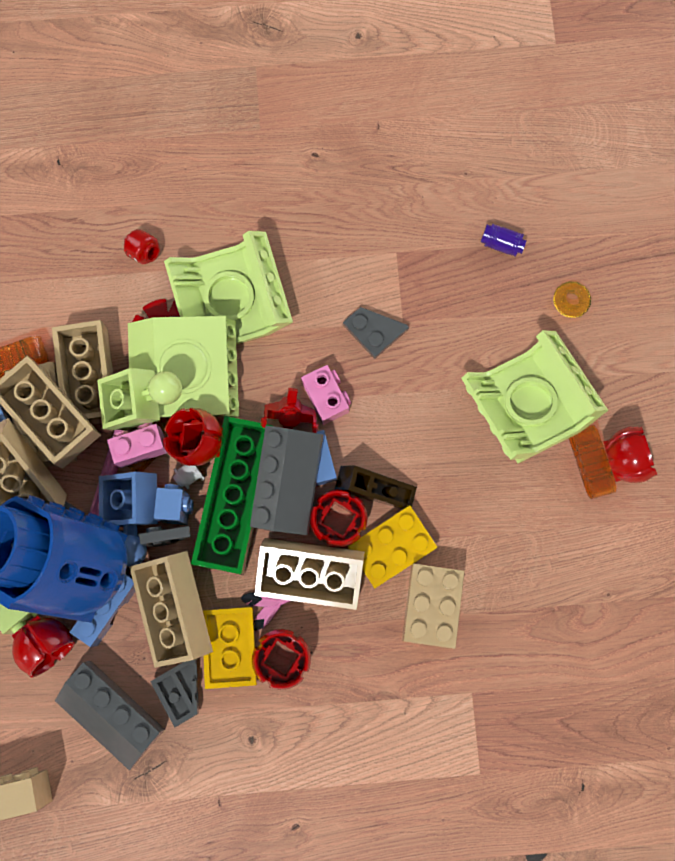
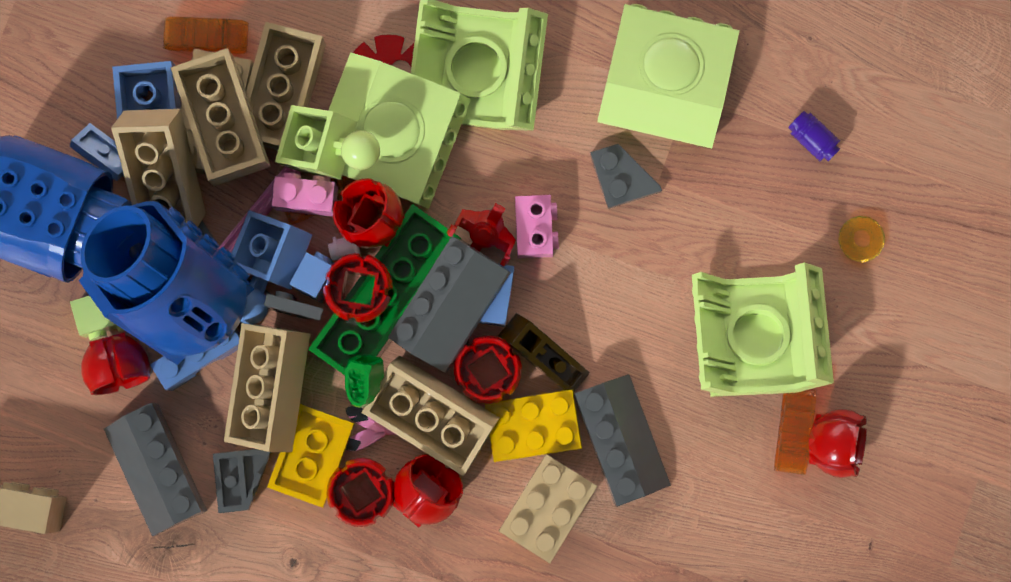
camera: 25 degrees right, 5 degrees up
(202, 480) = (336, 286): none -> red piece
(244, 568) = (363, 379): none -> green rock
(333, 634) = (426, 490): none -> red piece
(376, 240) = (668, 75): none -> yellowish green panel
(465, 528) = (622, 440): none -> dark grey slope

